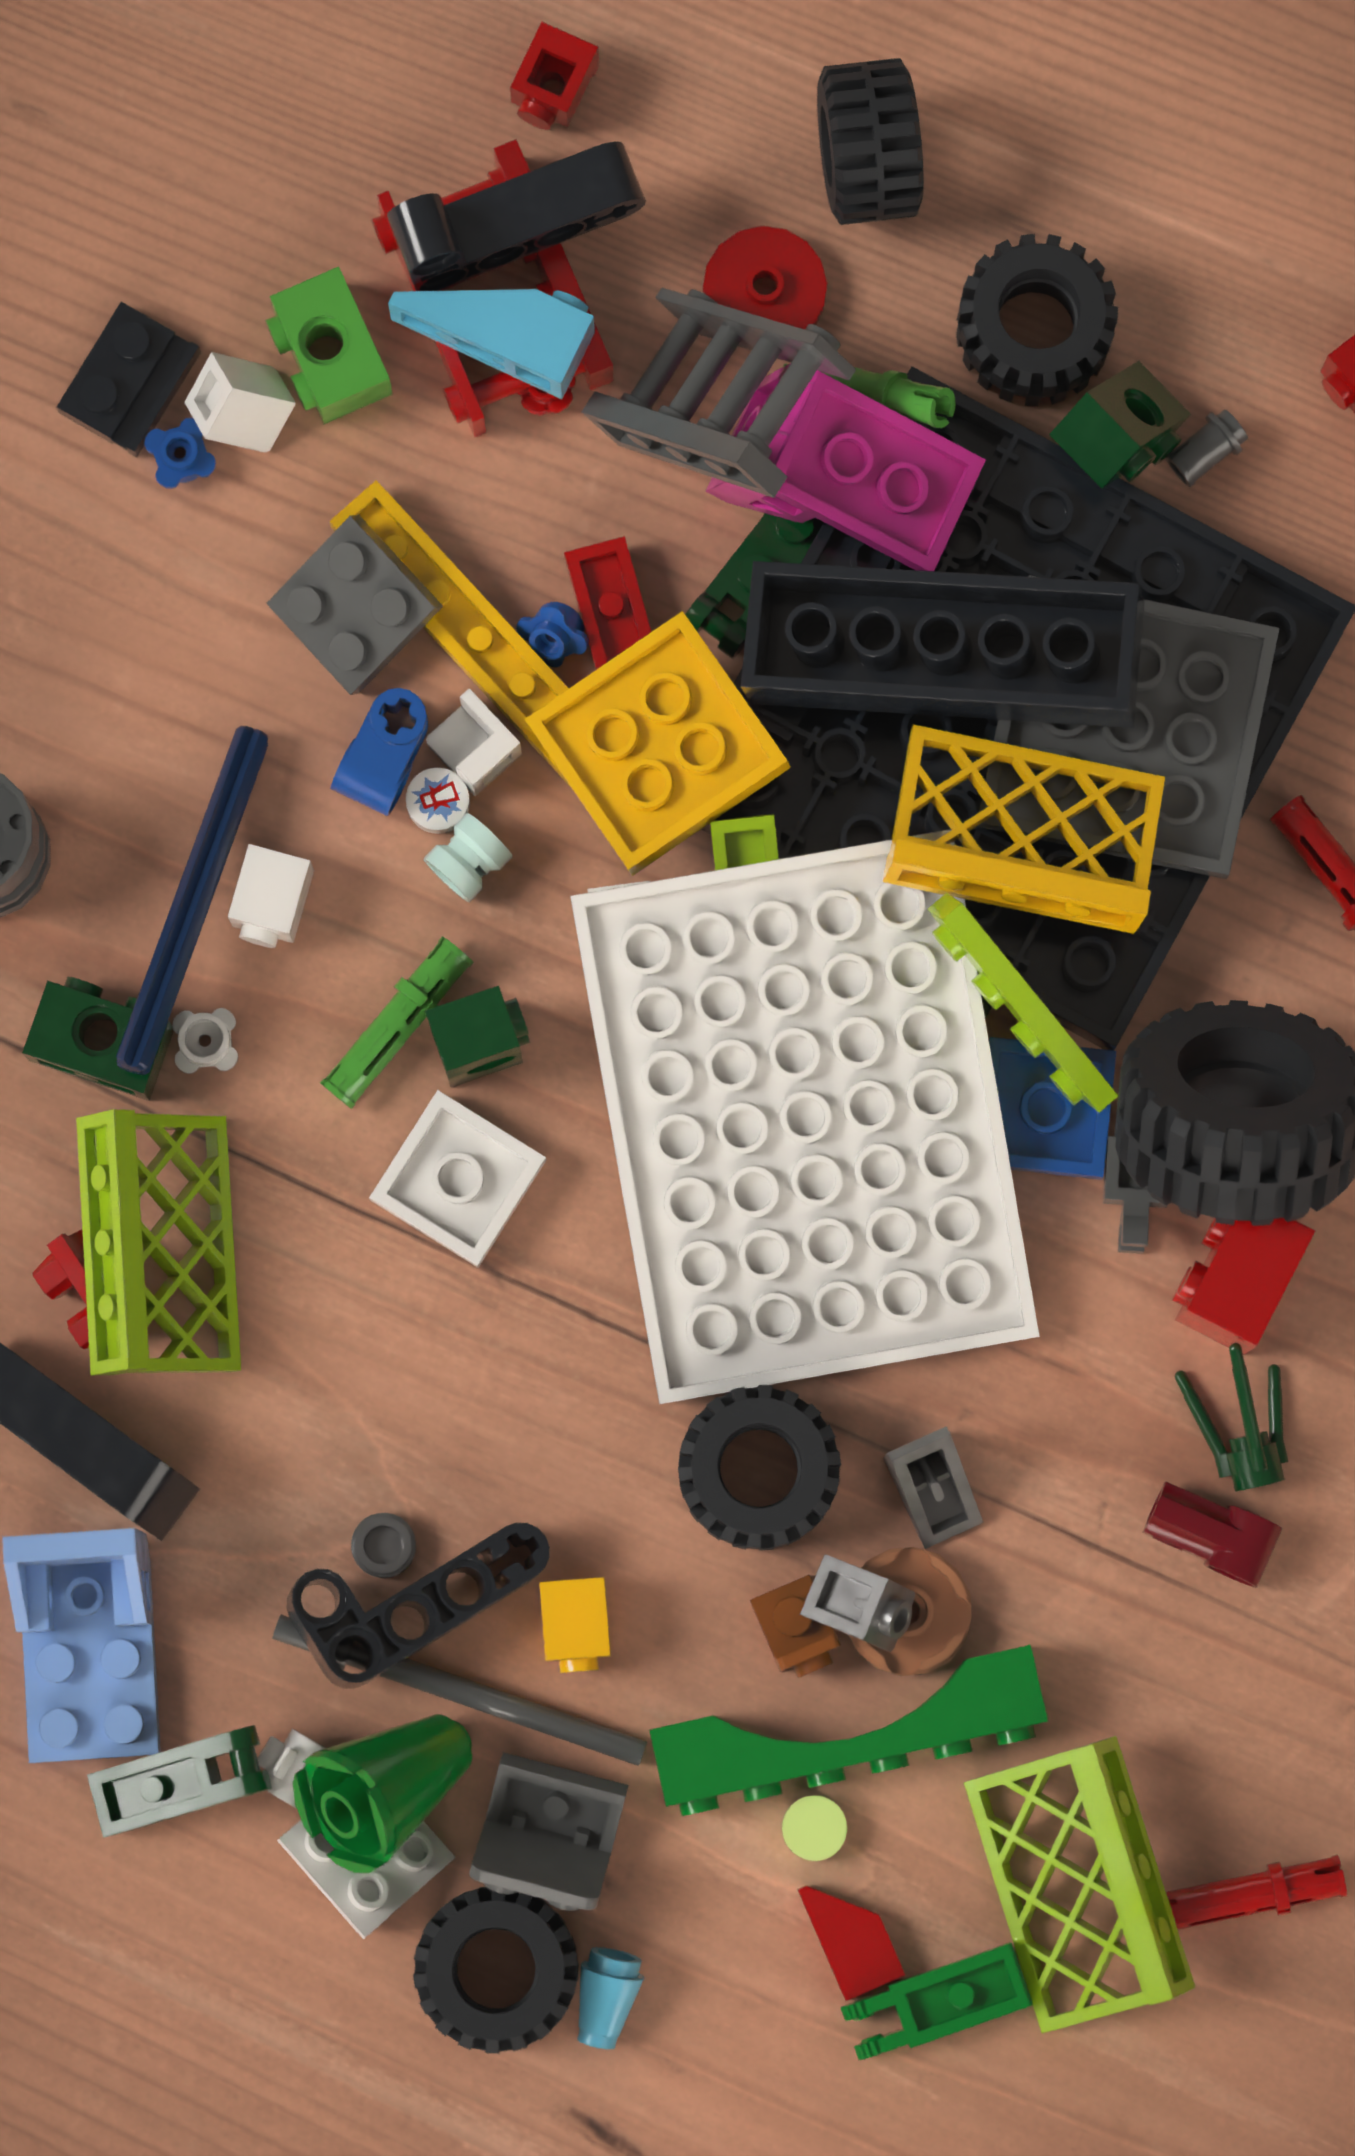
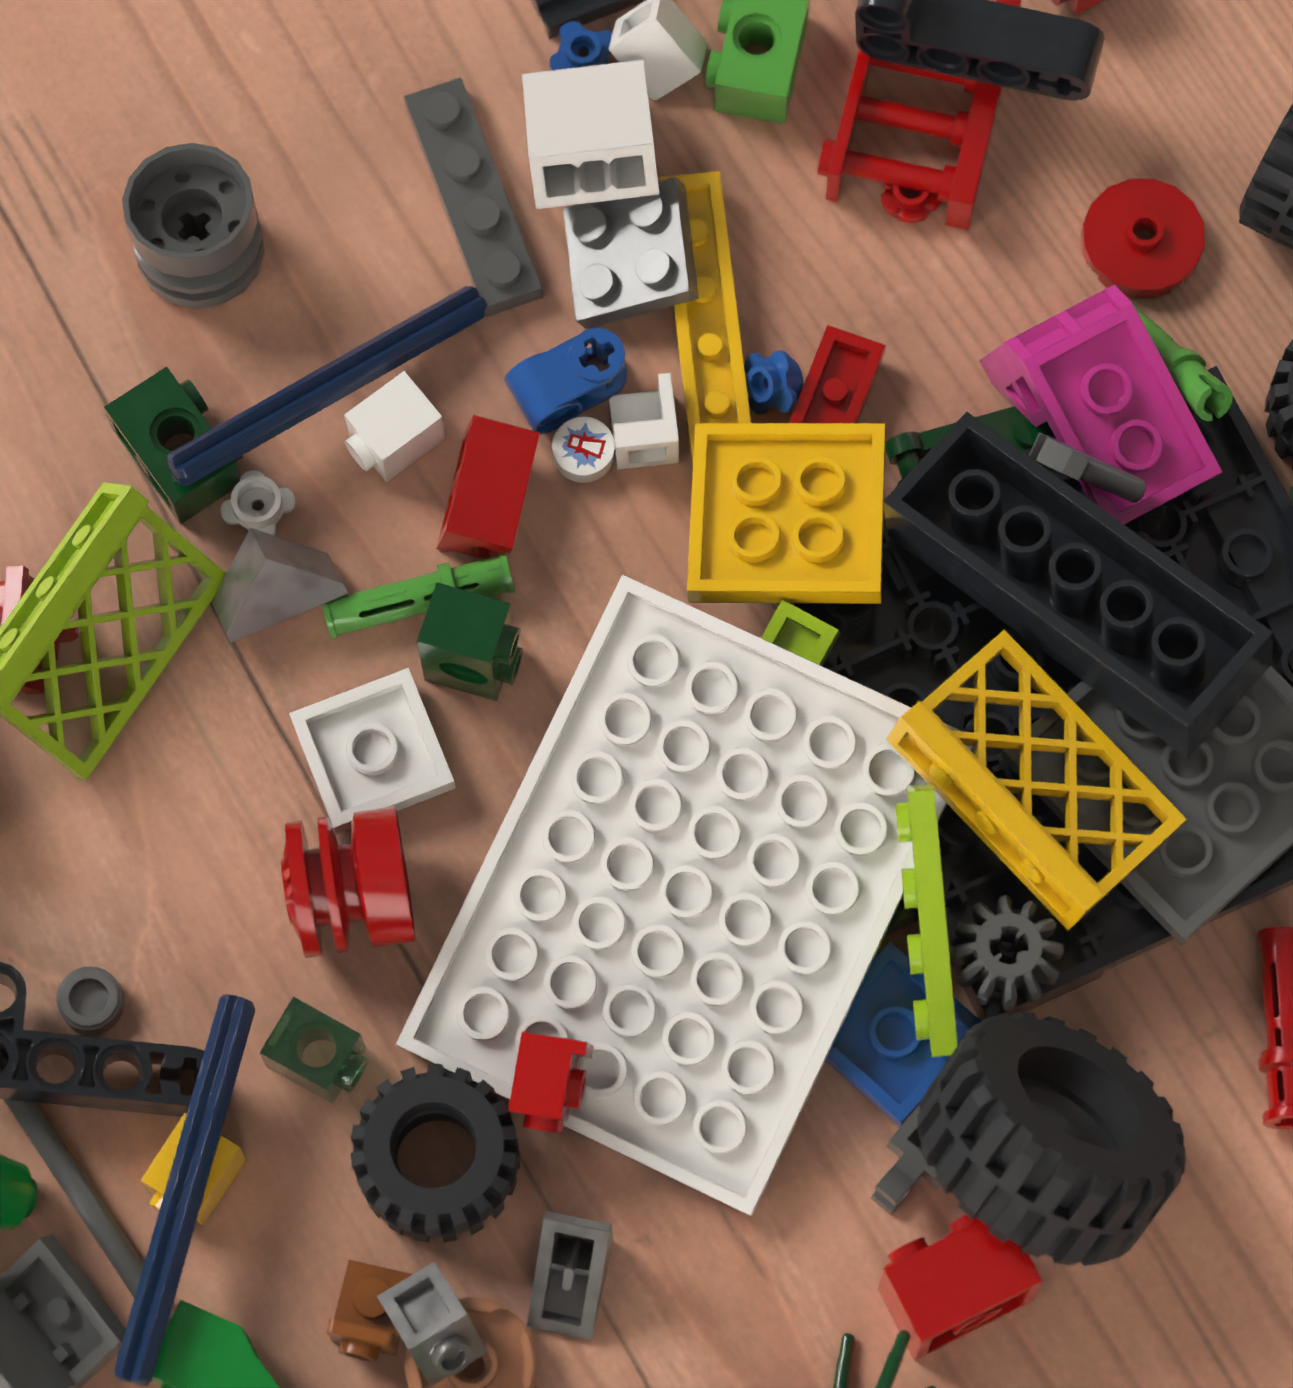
camera: 40 degrees right, 10 degrees down
(179, 644) = (473, 196): none -> dark grey plate
(250, 527) = (589, 134): none -> white brick
(273, 1099) = (272, 583): none -> flat silver slope
(387, 892) = (488, 489): none -> red hinge
(468, 857) = (572, 506): light aqua wheel -> none
(511, 330) = (905, 114): medium azure slope -> none
(529, 1302) = (348, 882): none -> red wheel
(571, 1448) = (295, 1031): none -> clear green brick
(589, 1642) = (184, 1191): none -> dark blue axle
(708, 445) = (1007, 306): dark grey fence -> none
(810, 1348) = (548, 1080): none -> red brick
(865, 546) = (1087, 468): none -> dark grey bar
(1119, 993) = (1030, 964): none -> dark grey gear

